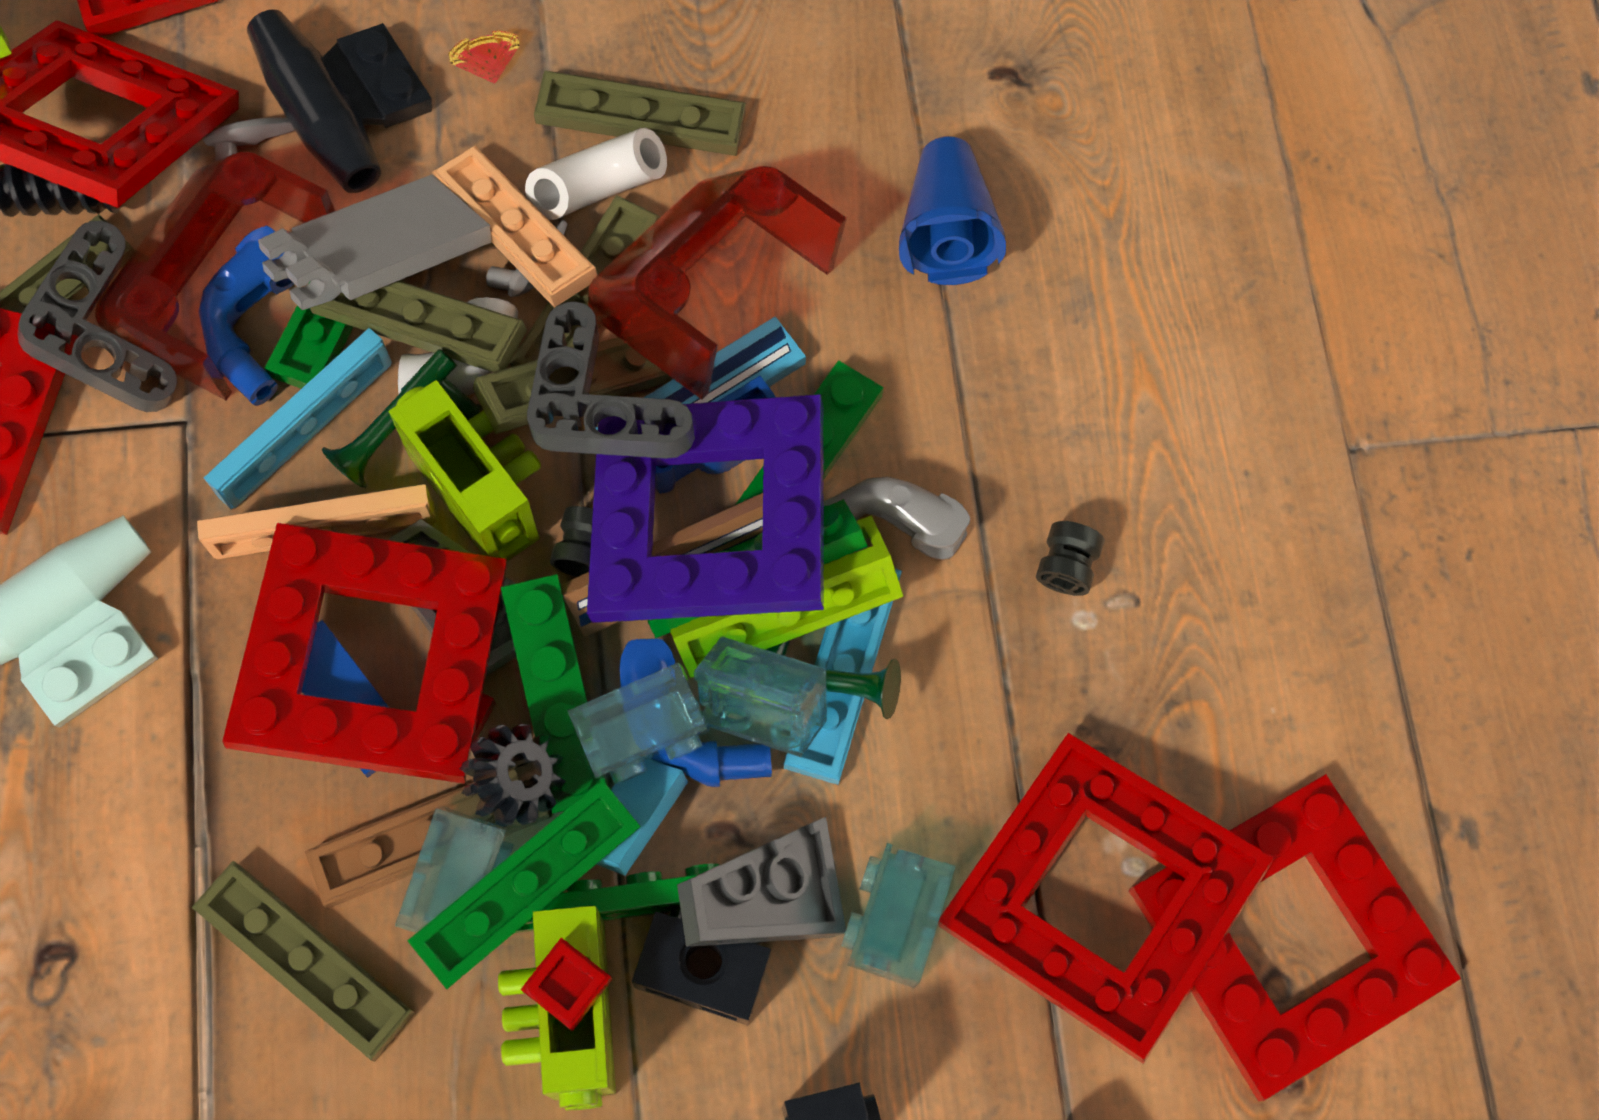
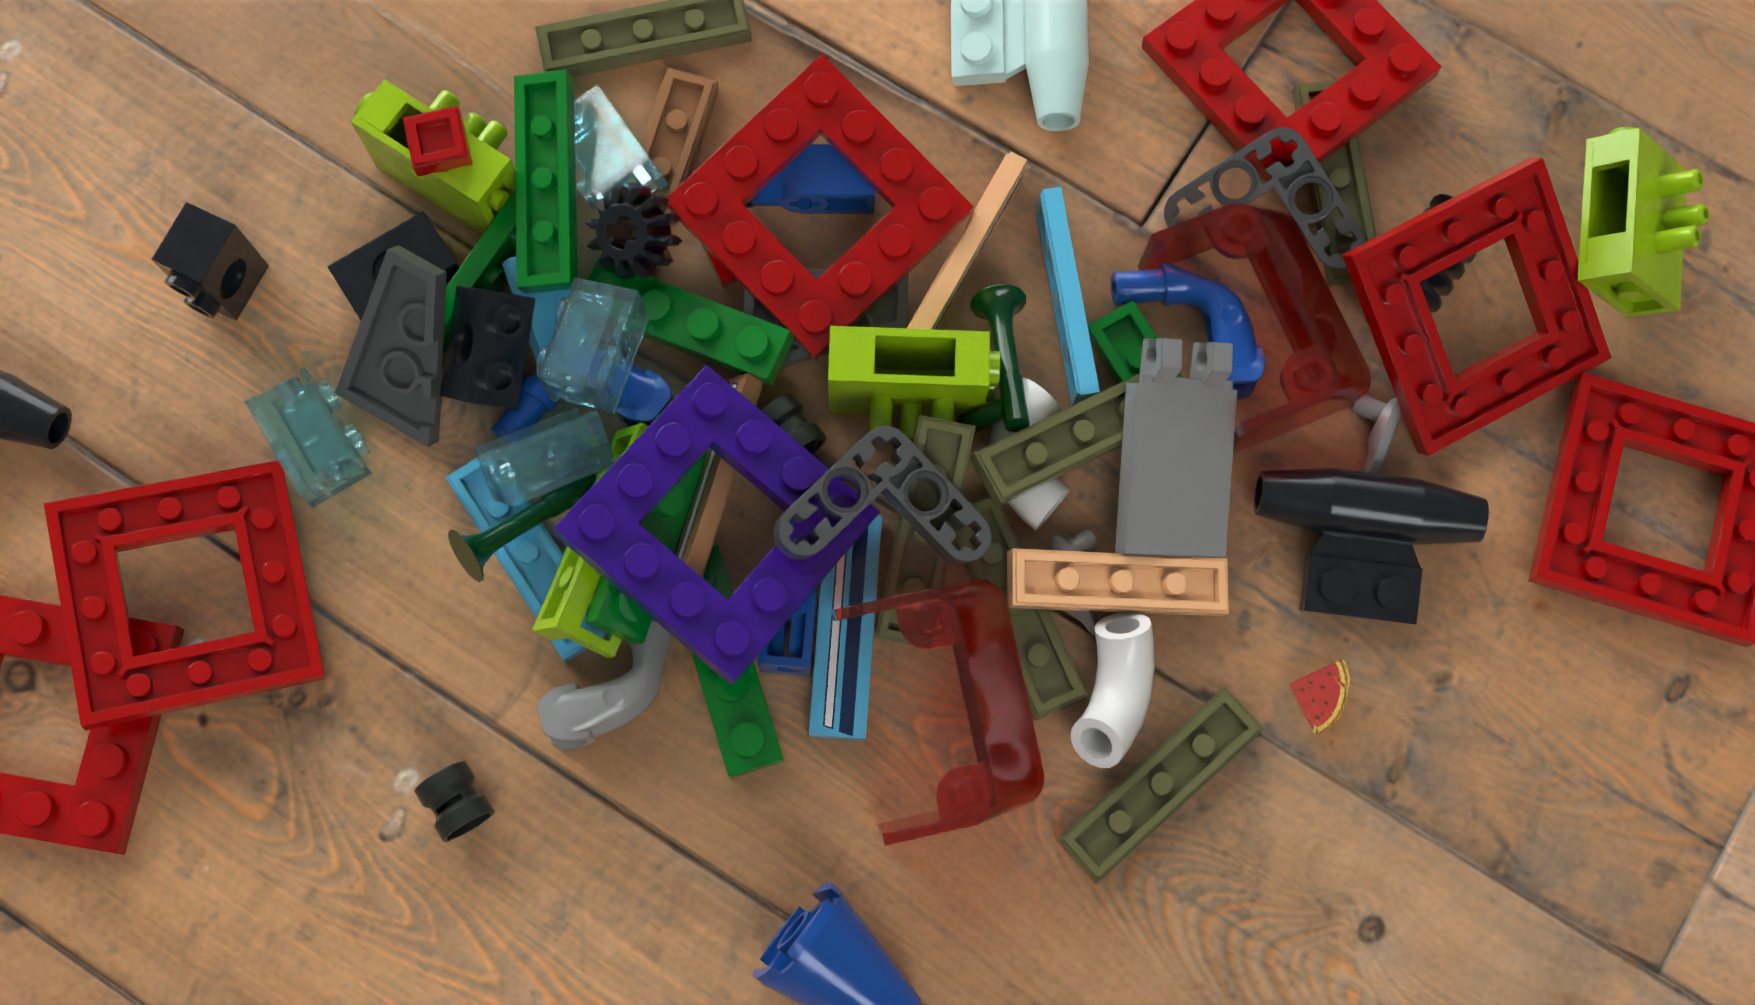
camera: 130 degrees right, 5 degrees up
(708, 818) = (487, 347): none -> black brick

